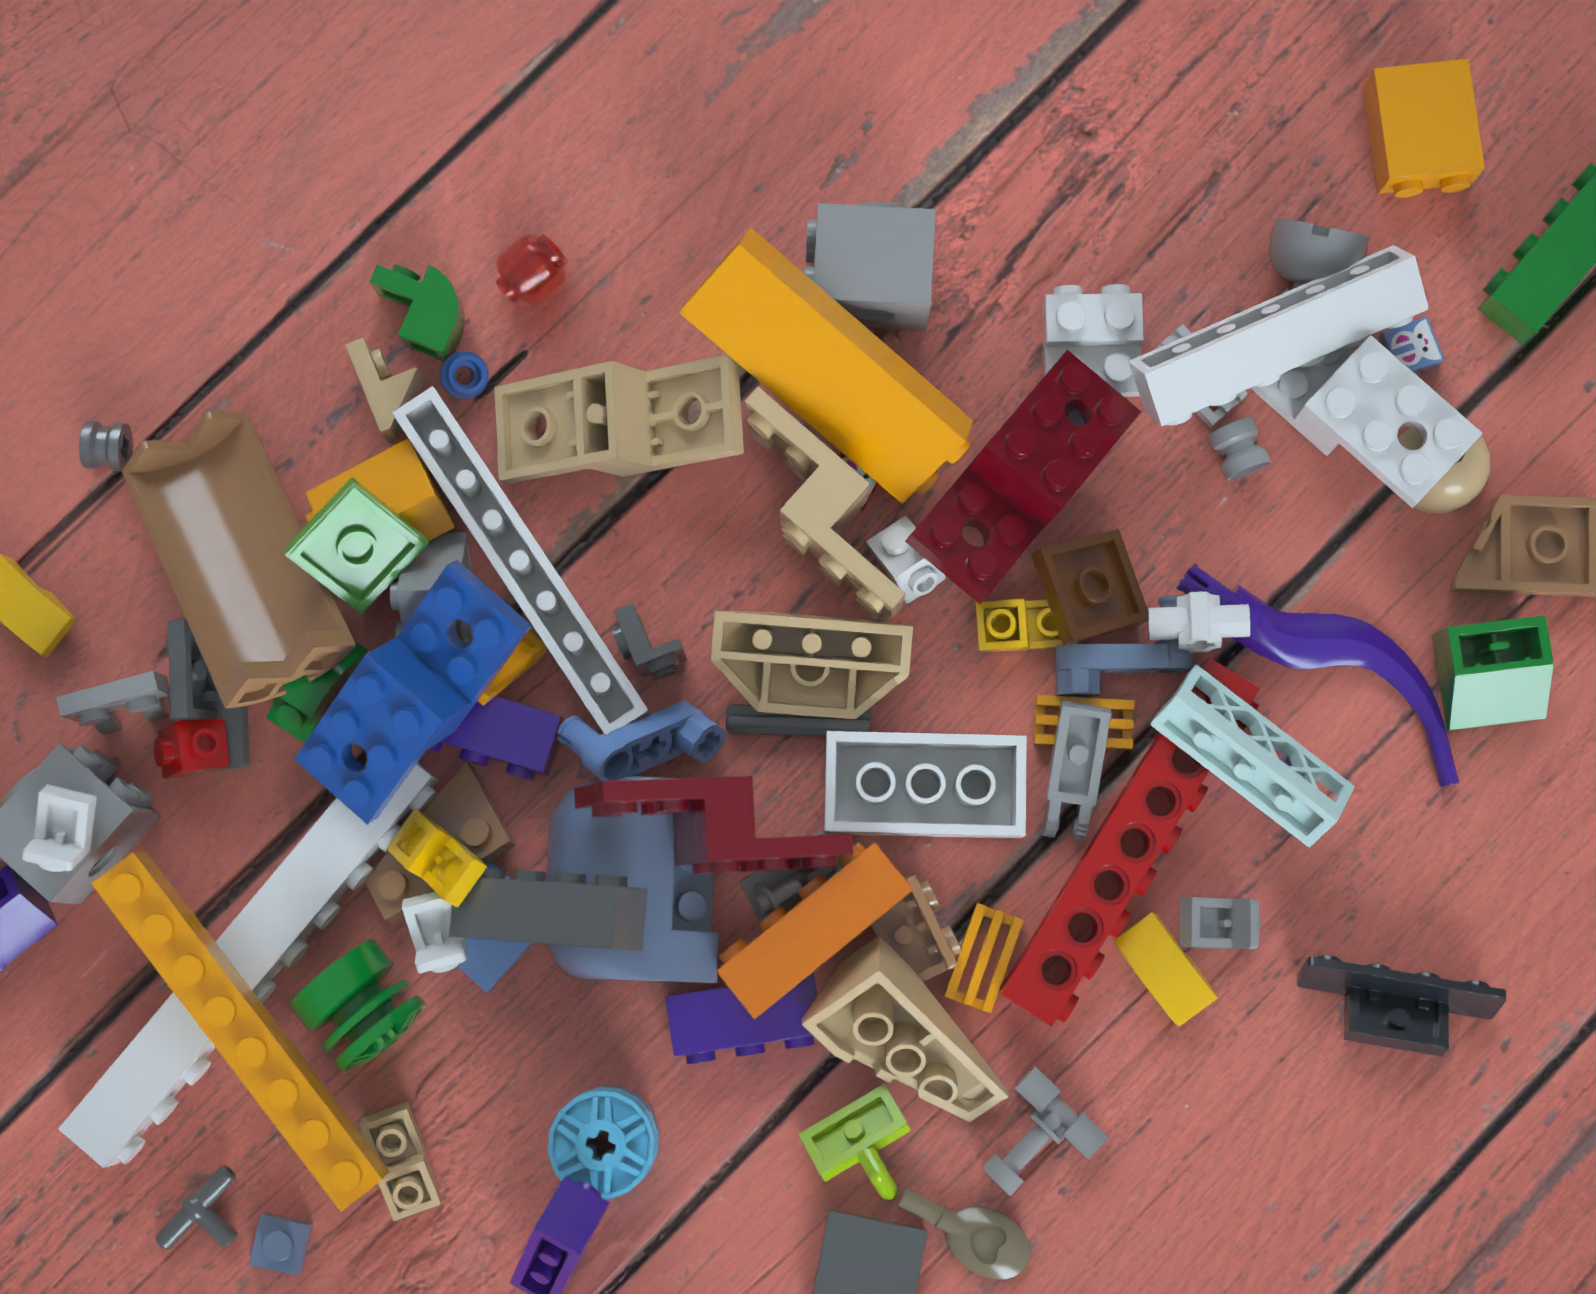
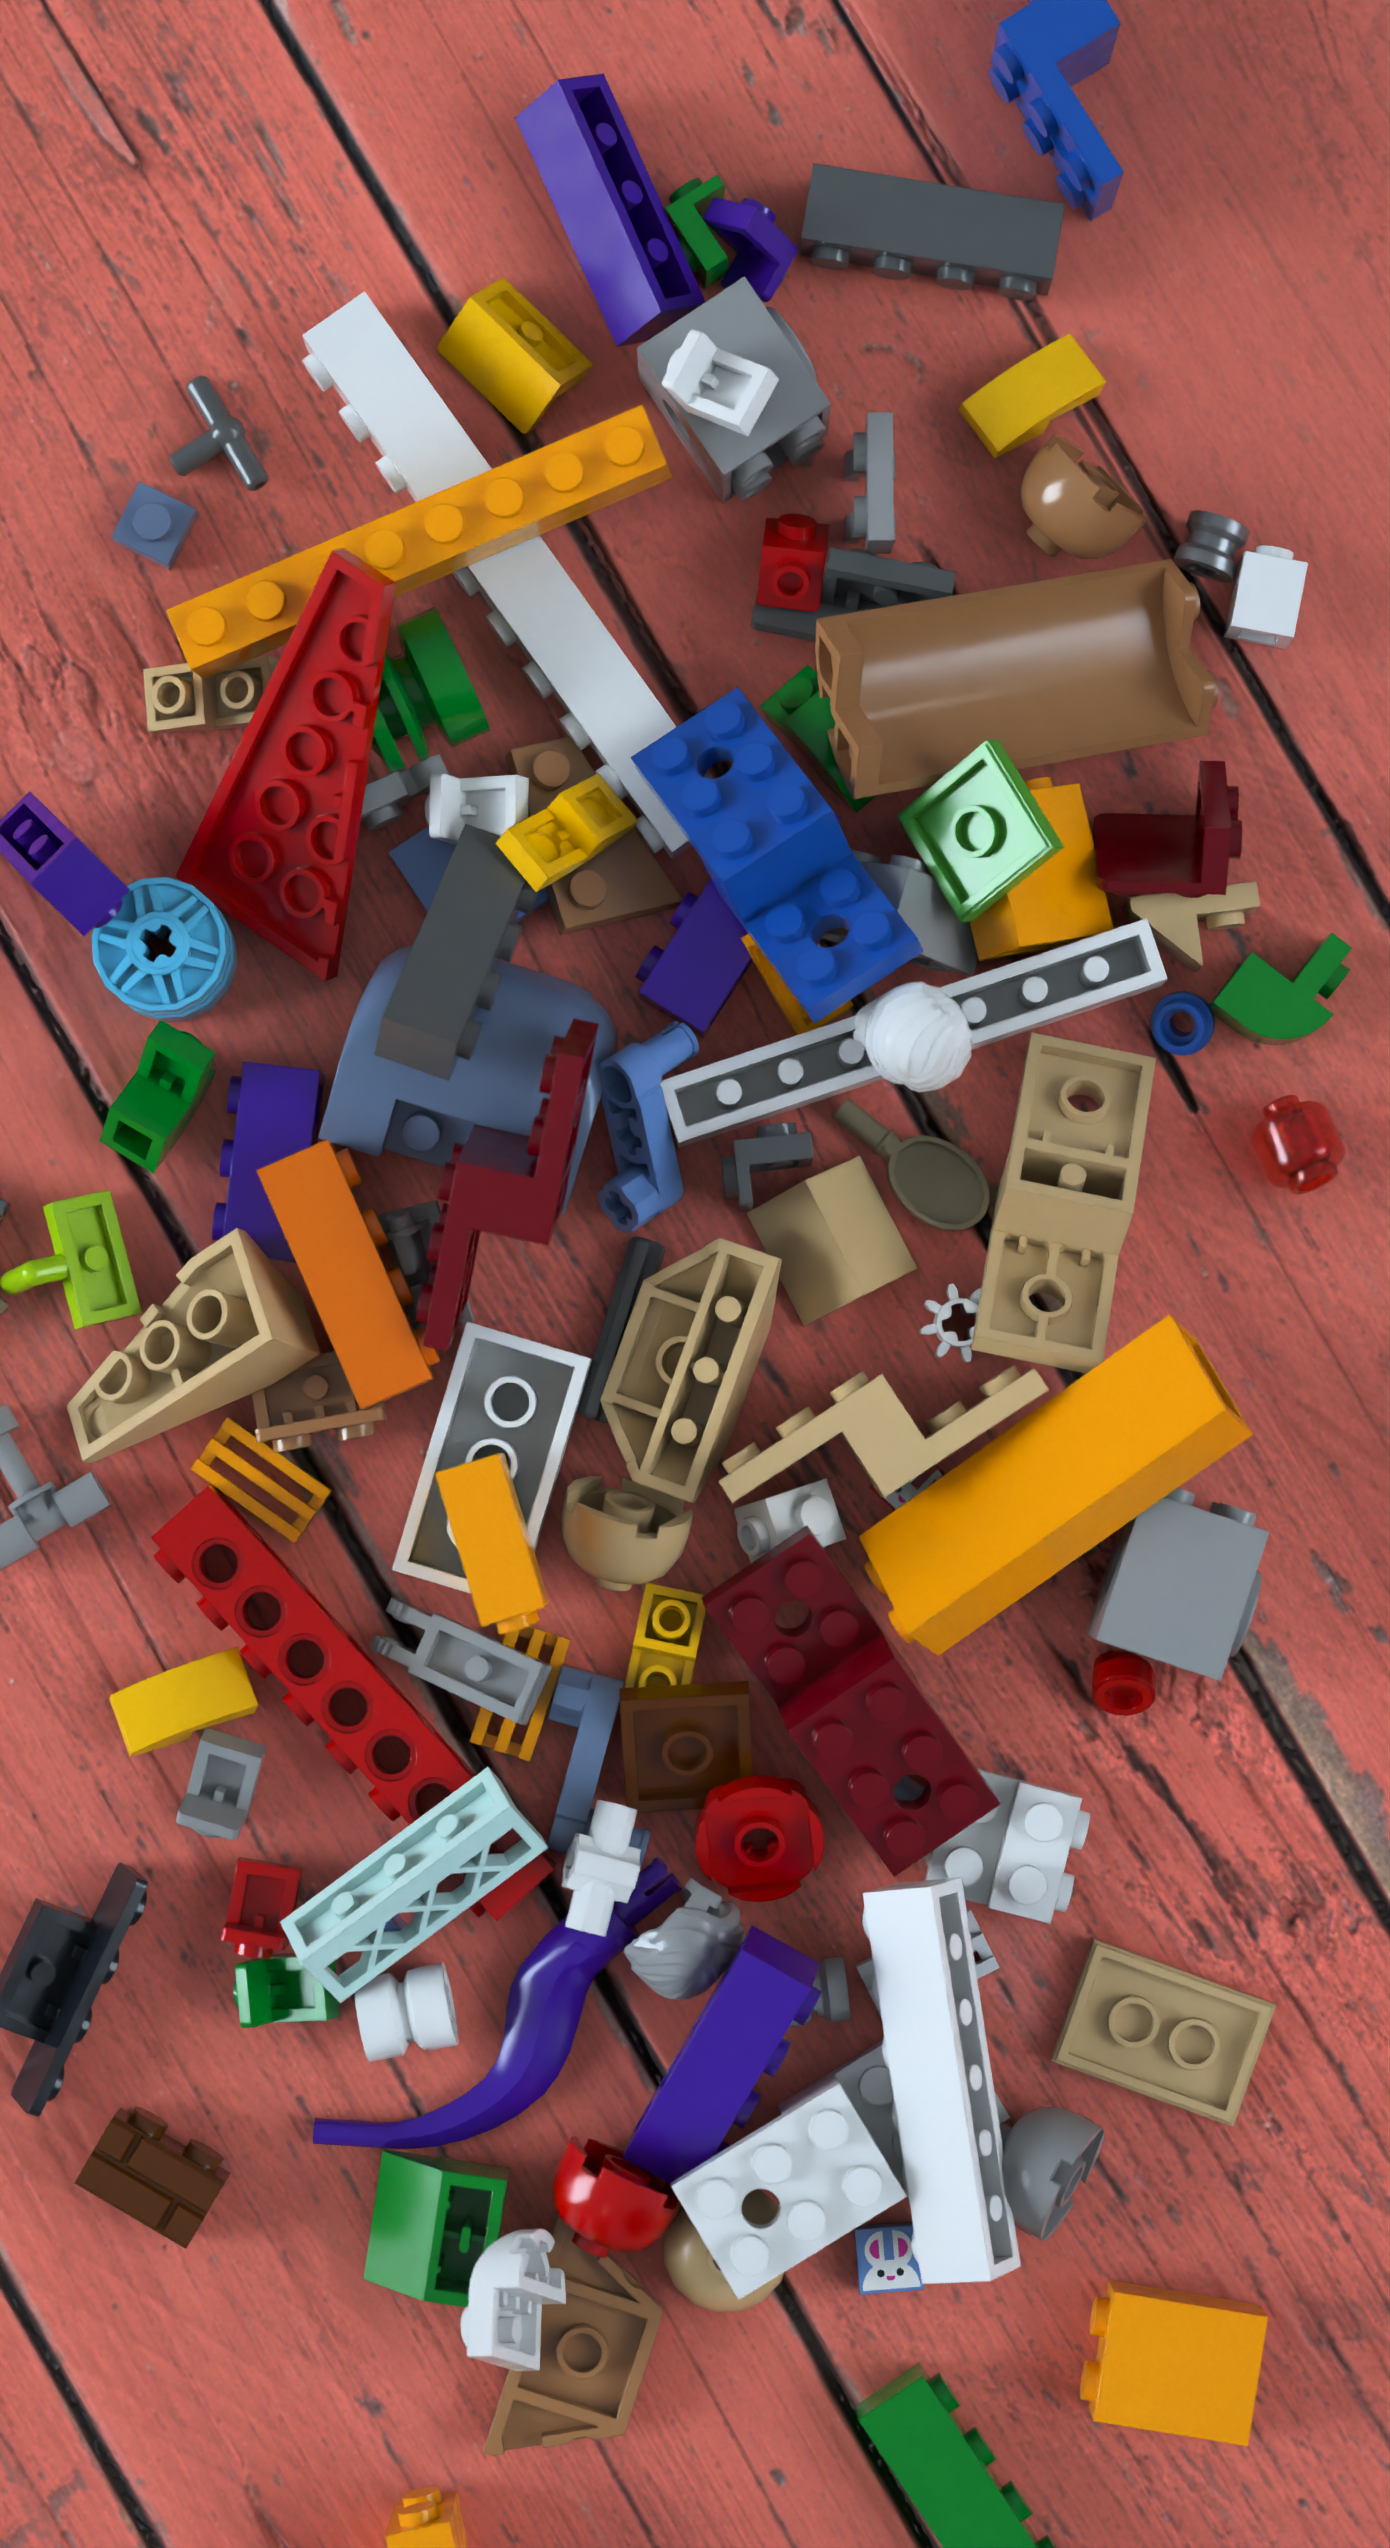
camera: 105 degrees right, 5 degrees up
(83, 1004) = (512, 354): none -> yellow panel
(98, 550) = (1076, 504): none -> medium nougat cylinder
(134, 395) = (1266, 597): none -> white brick
(338, 409) = (1172, 851): none -> dark red bracket
(448, 1008) = (395, 790): none -> light grey plate
(464, 1075) = (292, 799): none -> red wing
(522, 550) = (915, 1036): none -> white hair
(622, 530) = (924, 1173): none -> dark tan piece
(689, 582) = (832, 1240): none -> tan slope
(717, 1114) = (159, 1097): none -> green brick
(720, 486) = (950, 1339): none -> white gear
(946, 676) = (623, 1533): none -> tan cylinder
(953, 291) = (1123, 1683): none -> red tile
(986, 758) = (493, 1543): none -> light orange brick
(1121, 531) = (759, 1803): none -> red plate
(1193, 200) = (1162, 2032): none -> tan tile
(1235, 543) = (690, 1946): none -> light grey hair
(1300, 868) = (259, 1900): none -> red bracket
(1309, 495) = (725, 2056): none -> dark purple brick
(1344, 738) = (407, 2011): none -> white wheel
(1356, 836) = (281, 1992): none -> green bracket
(1434, 550) = (610, 2200): none -> red cylinder
(1520, 892) = (154, 2175): none -> reddish brown brick
(1532, 604) = (508, 2298): none -> white slope

